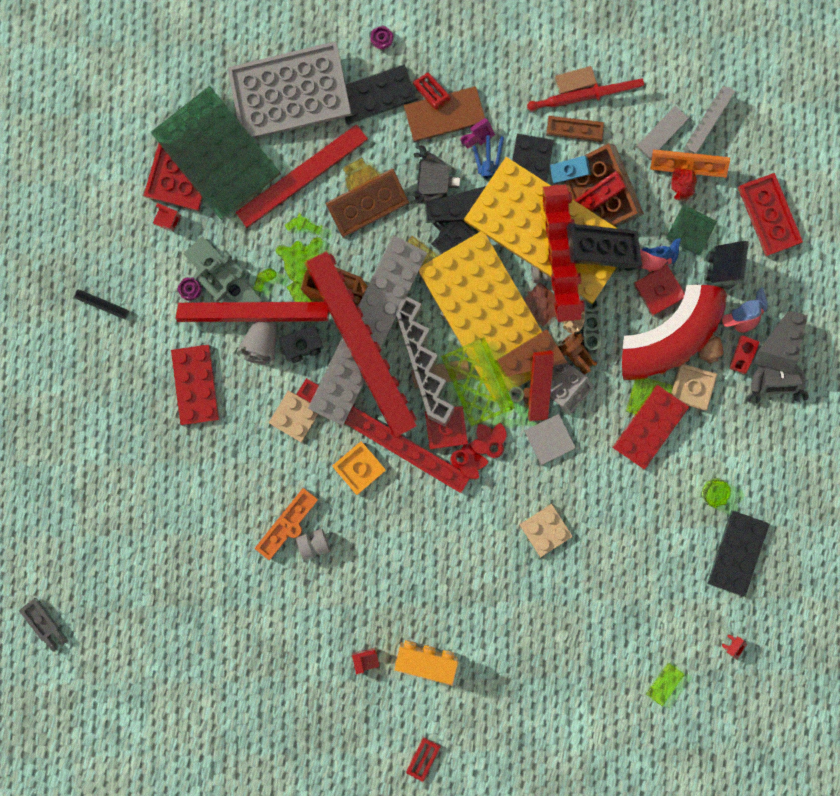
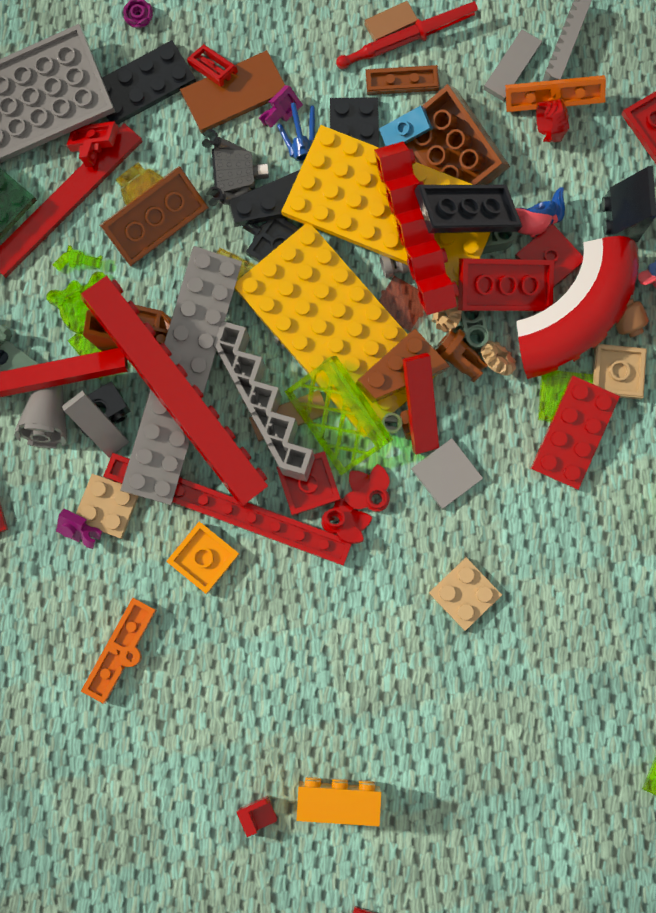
camera: 10 degrees left, 5 degrees down
(264, 277) = (36, 335): clear neon green arm -> none
(270, 429) = (75, 527): none -> magenta plate
(297, 355) = (95, 423): none -> light grey tile
(313, 544) = (158, 671): light grey wheel -> none
(329, 133) = (91, 139): none -> red hinge
(569, 387) = (459, 401): light grey bracket -> none
(602, 192) = (452, 145): red tile -> none
(608, 365) = (498, 358): none -> tan gear
(621, 307) = (505, 284): none -> red plate
(692, 228) = (575, 172): clear green plate -> none

